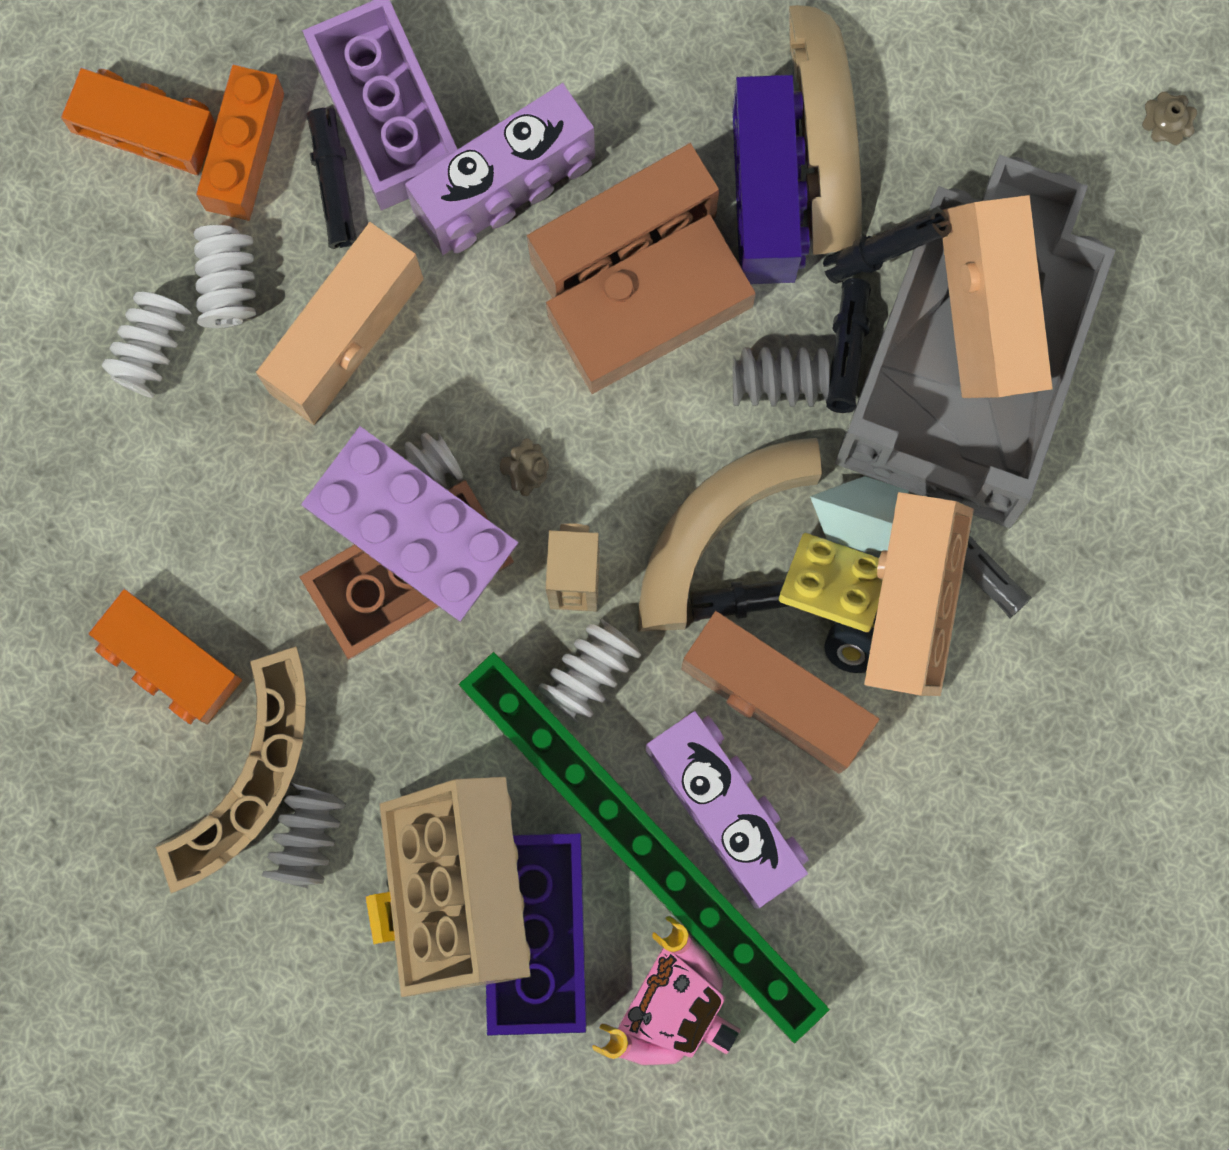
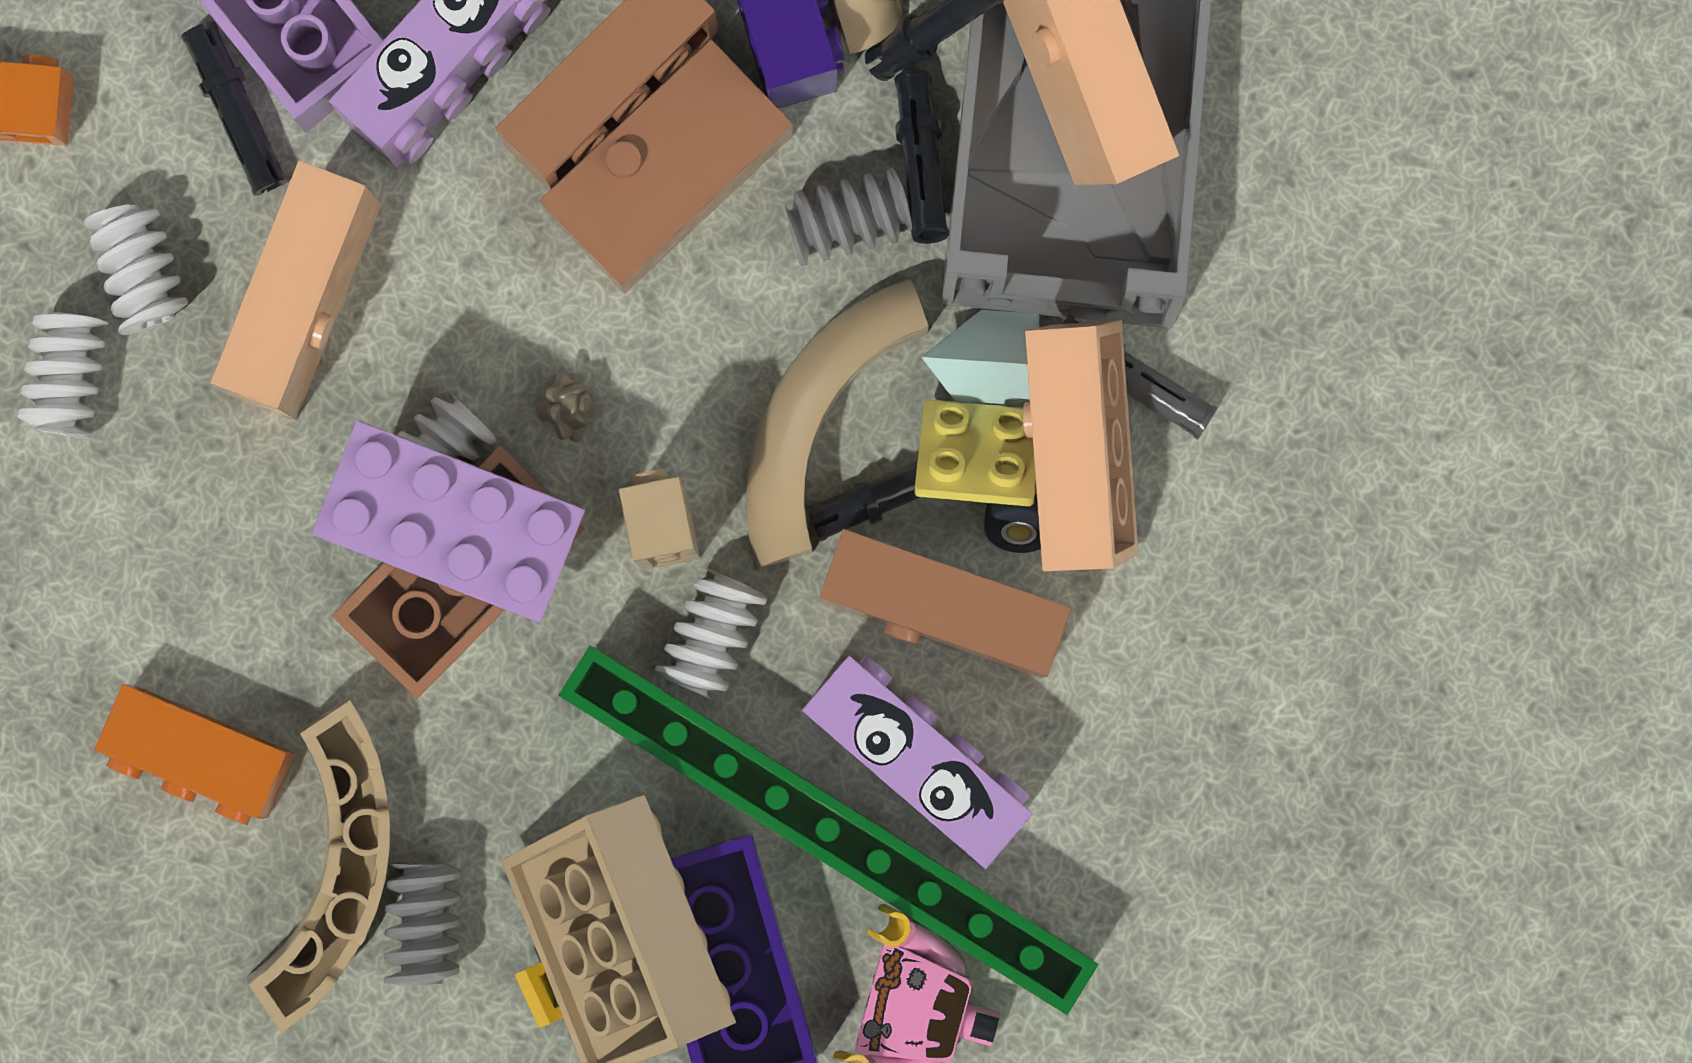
camera: 20 degrees left, 5 degrees up
(240, 142) = (110, 94): orange brick -> none

